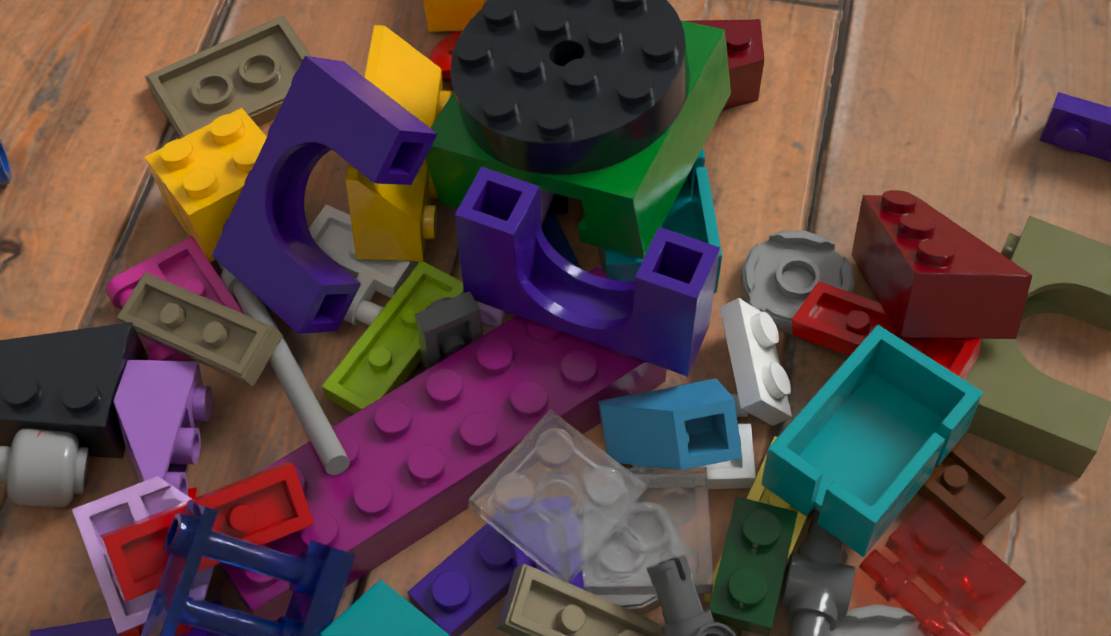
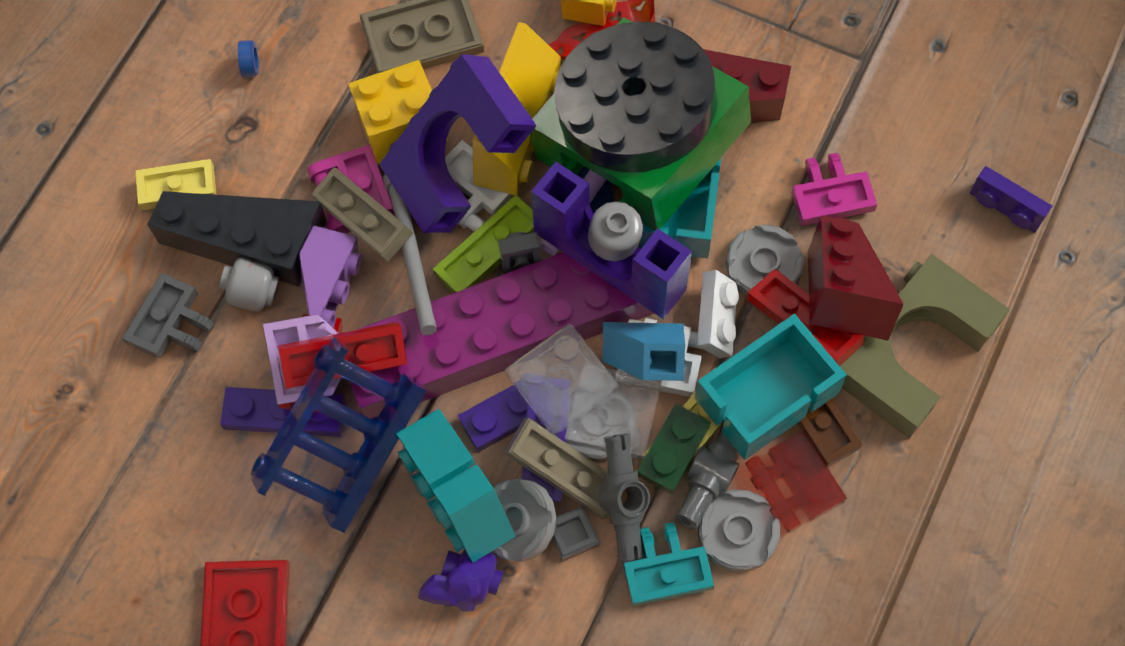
camera: 15 degrees right, 10 degrees up
(589, 257) = (615, 231): none -> light grey head
(865, 171) = (832, 197): none -> dark pink hinge

